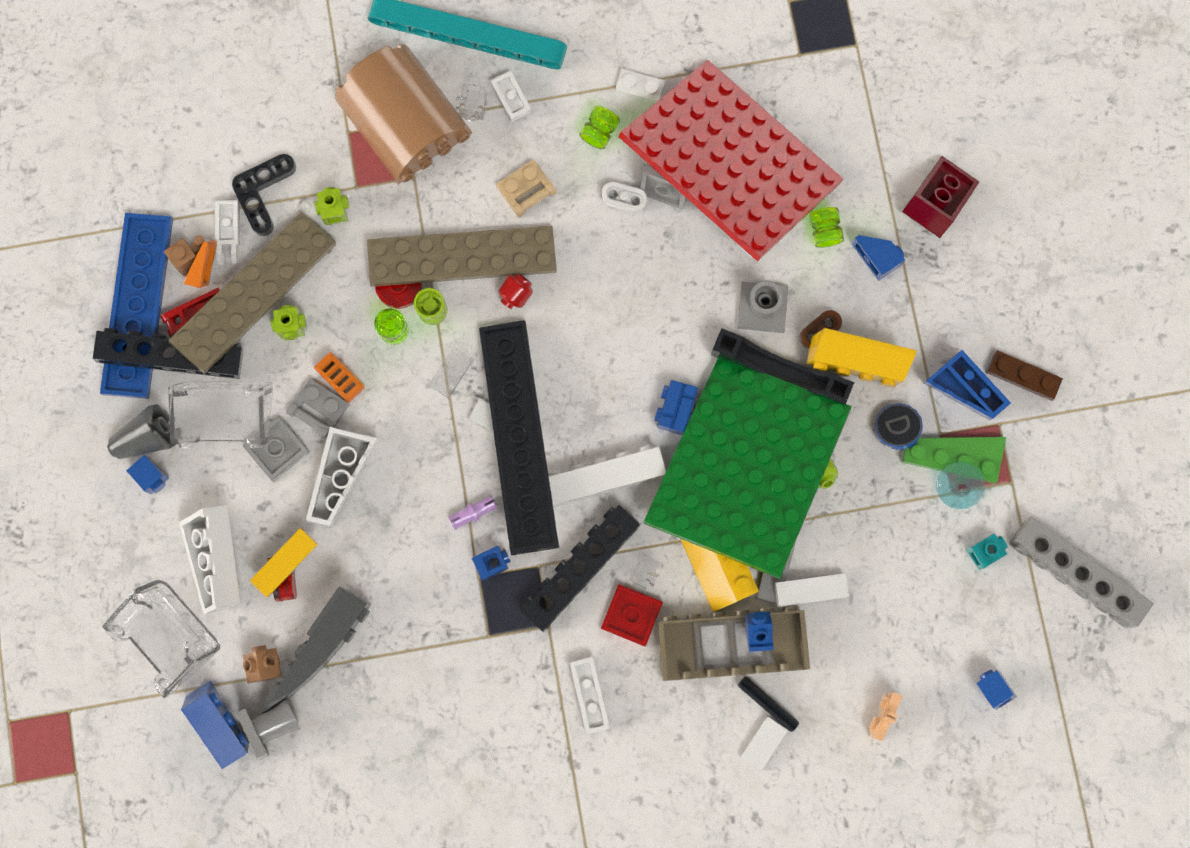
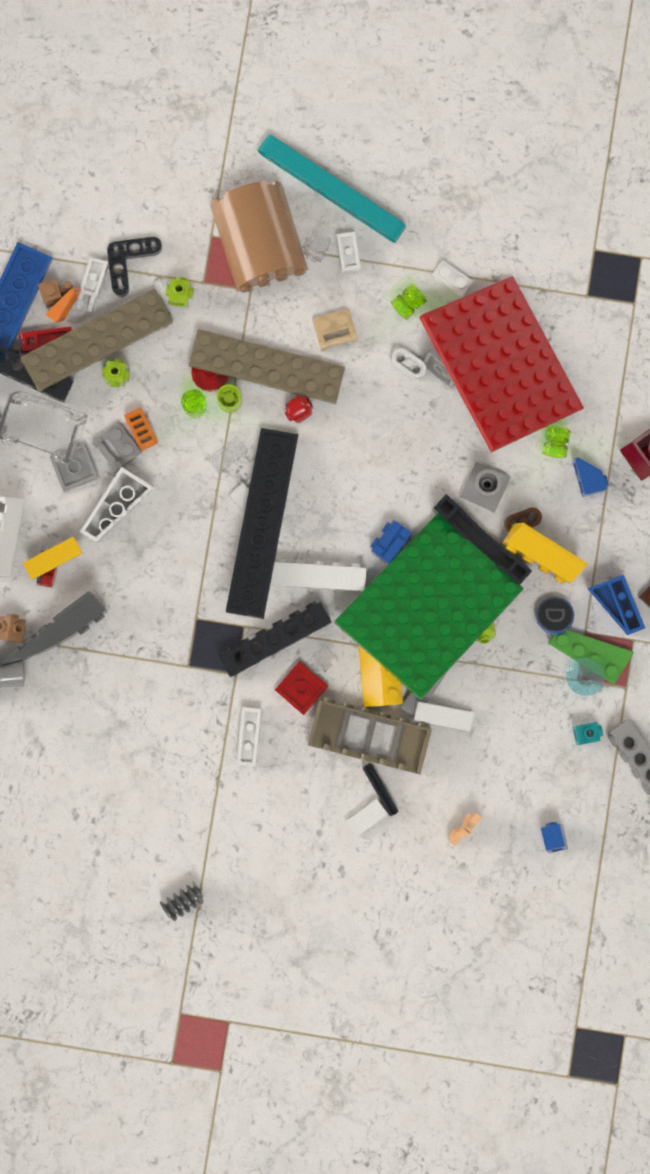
camera: 10 degrees right, 5 degrees up
(472, 512) = (208, 568): lavender pin -> none
(482, 562) = (202, 608): blue brick -> none
(759, 631) = (392, 733): blue brick -> none

